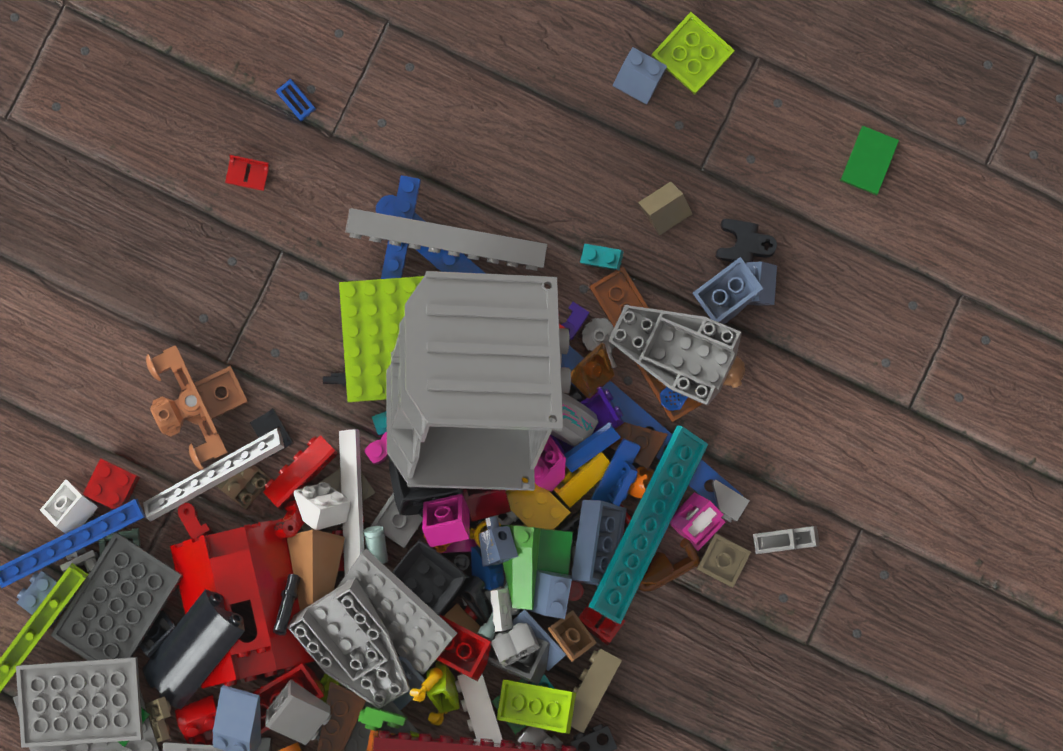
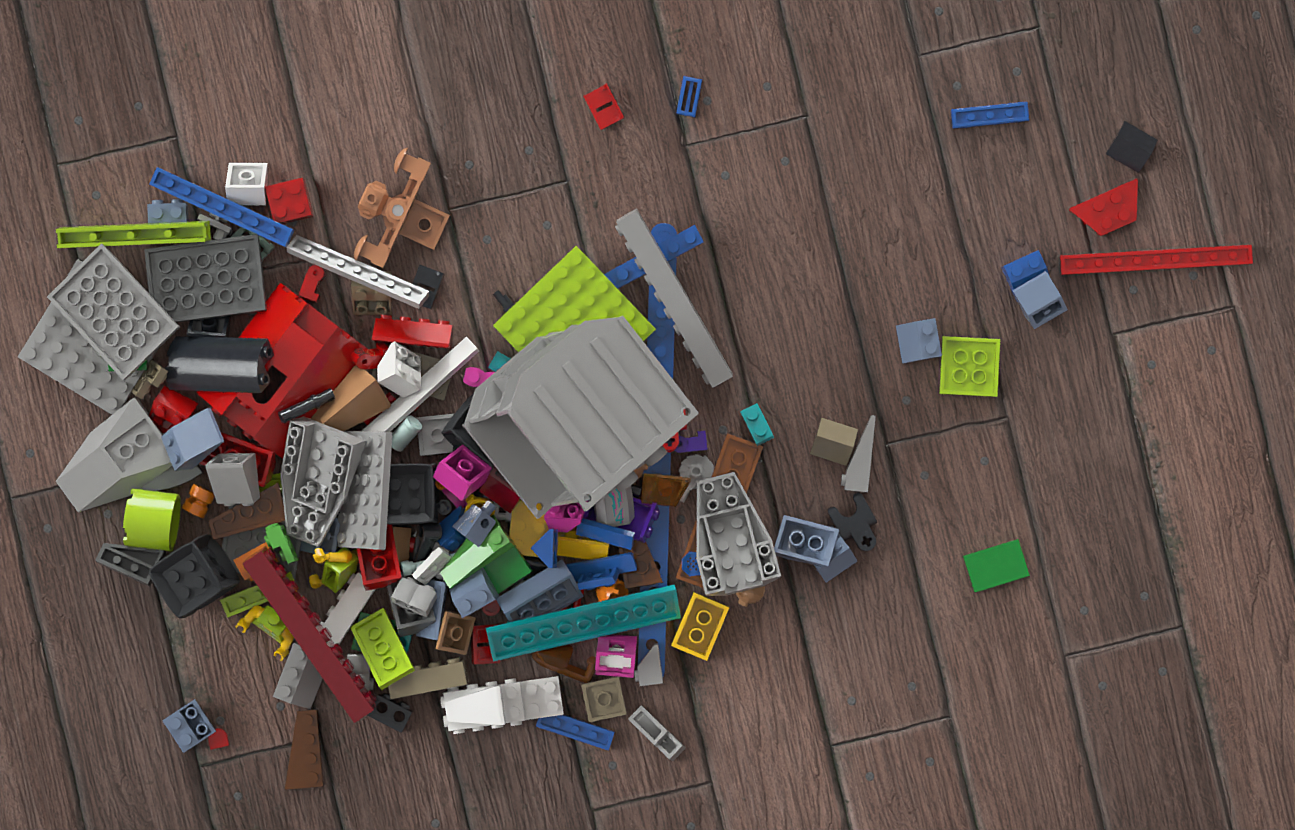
camera: 50 degrees right, 5 degrees up
(563, 503) = (547, 547): none -> blue slope
(659, 647) = (501, 703): none -> white wedge
(704, 206) = (858, 470): none -> light grey slope
(727, 433) = (700, 626): none -> yellow brick
(729, 603) = (577, 730): none -> blue plate

